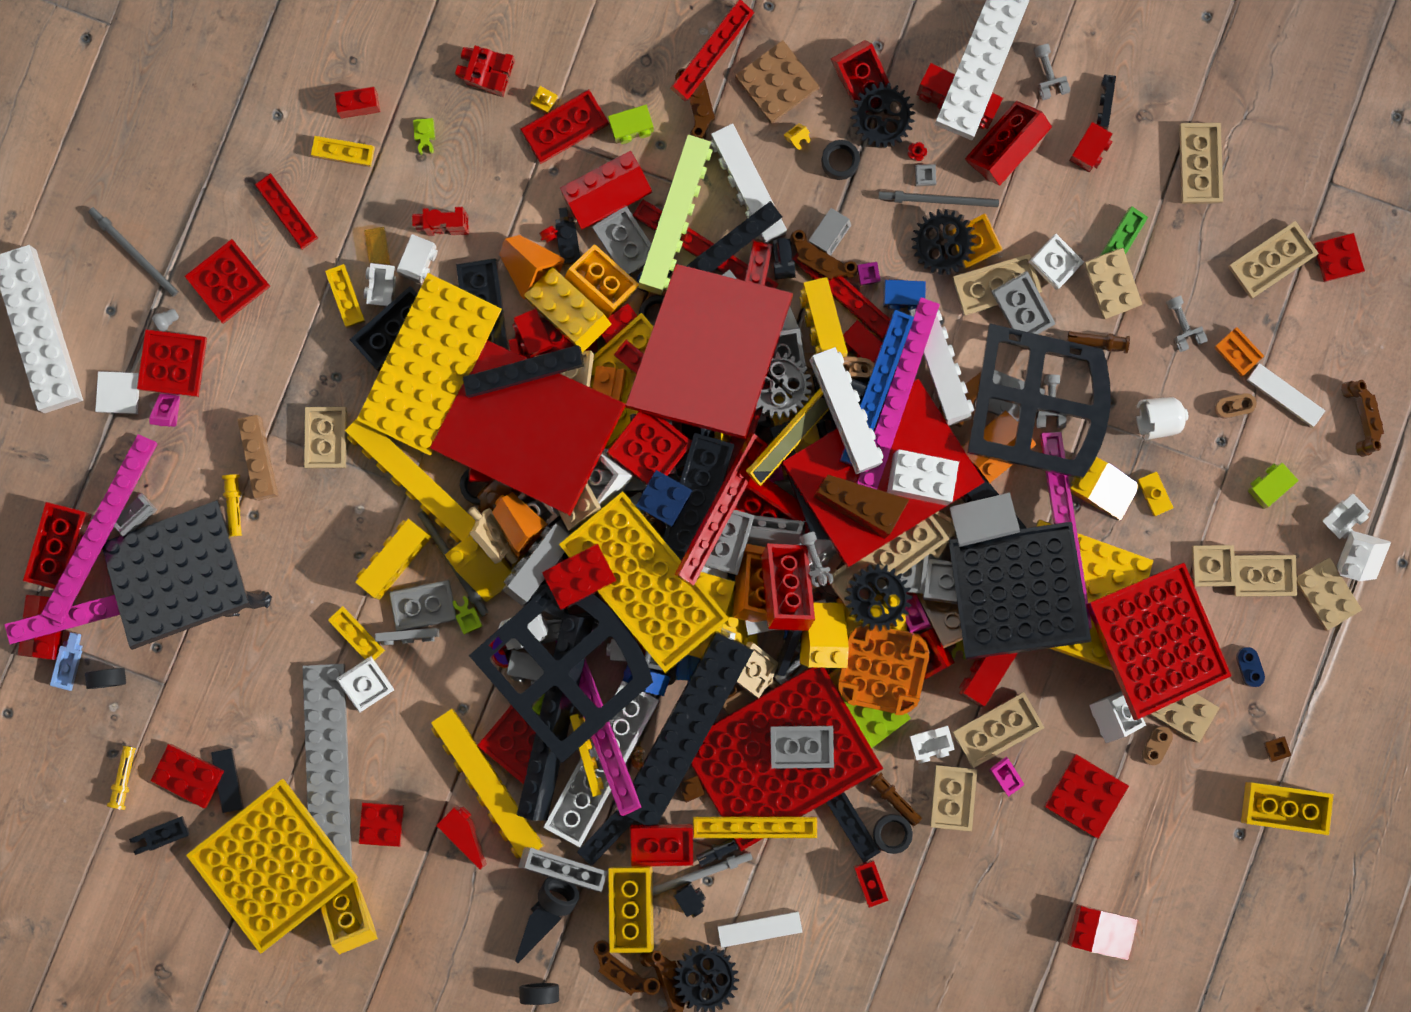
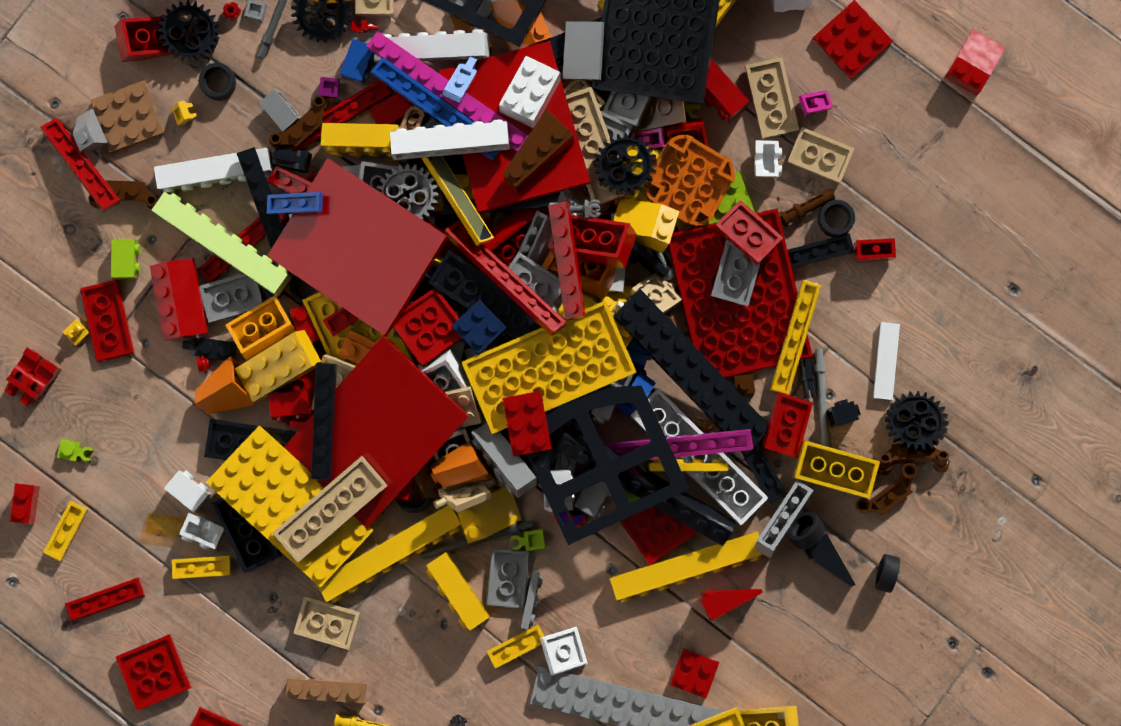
camera: 70 degrees left, 0 degrees up
(436, 405) = (330, 509): none -> tan plate
(437, 222) = (161, 459): red hips -> none
(736, 274) = (294, 203): none -> blue plate
(748, 48) = (88, 132): none -> light grey slope
(757, 567) = (567, 260): none -> red plate
(847, 746) = (748, 232): none -> red plate
(913, 403) = (461, 80): none -> light blue hinge
(942, 288) = (363, 27): none -> red piece

